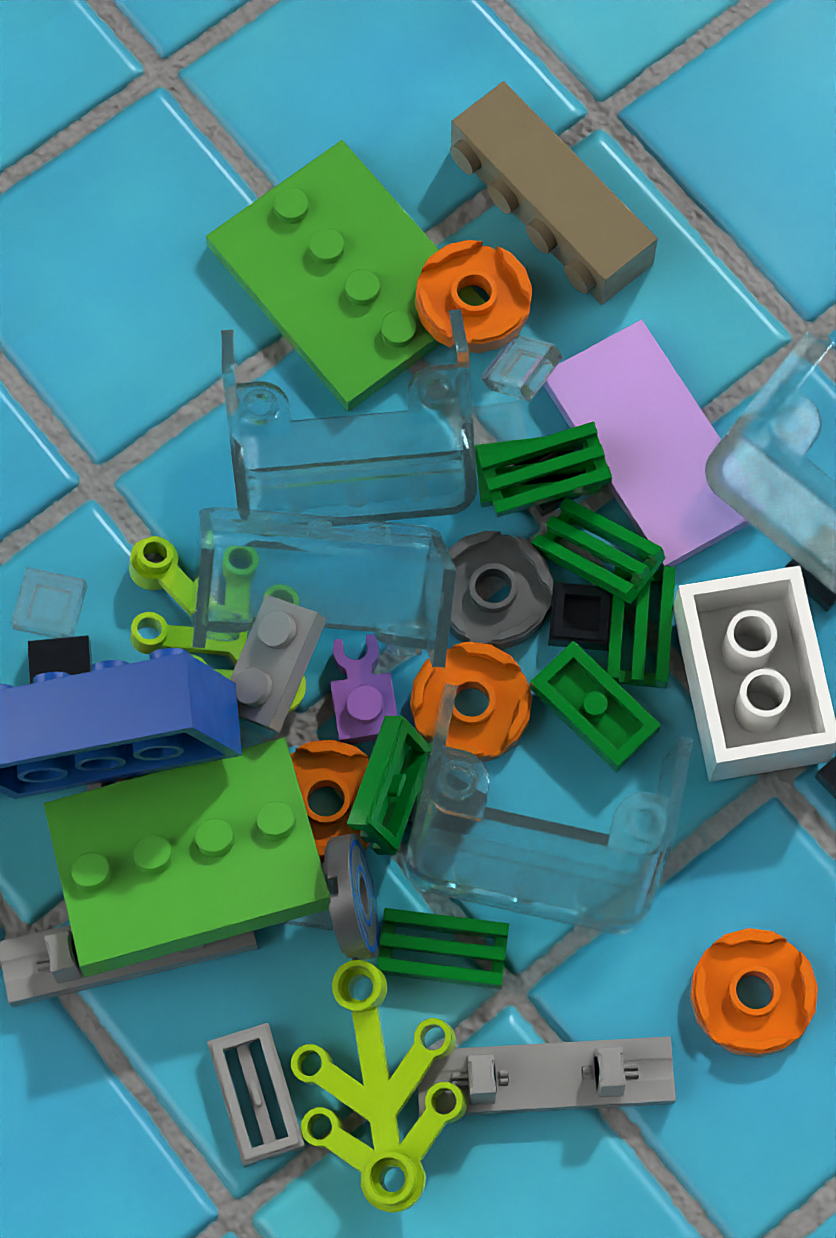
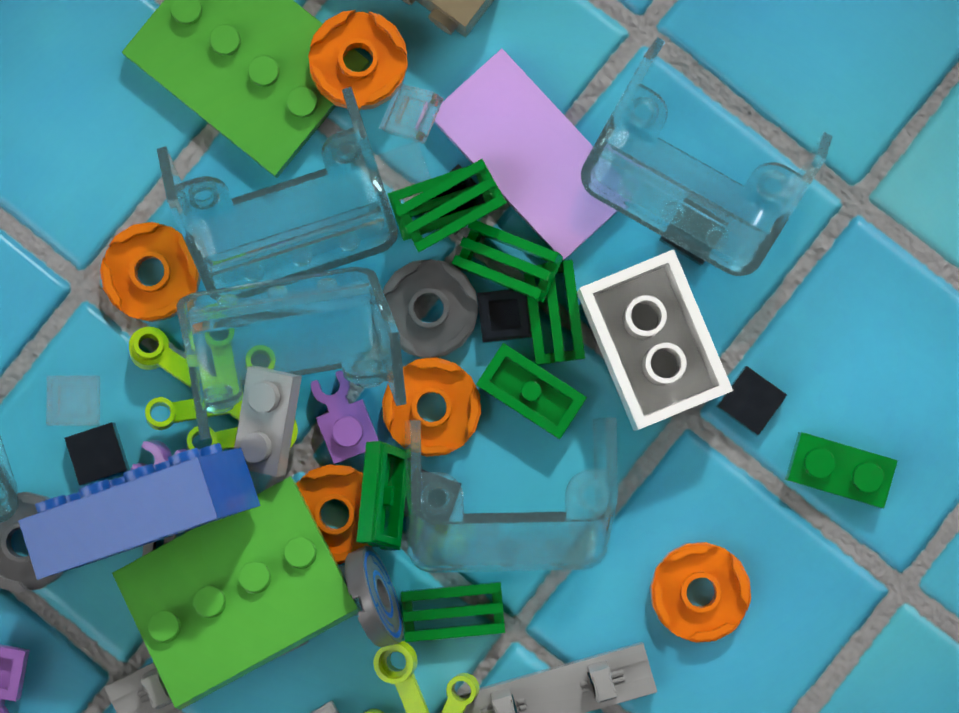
camera: 15 degrees left, 15 degrees up
(167, 449) = (121, 268): none -> orange tile

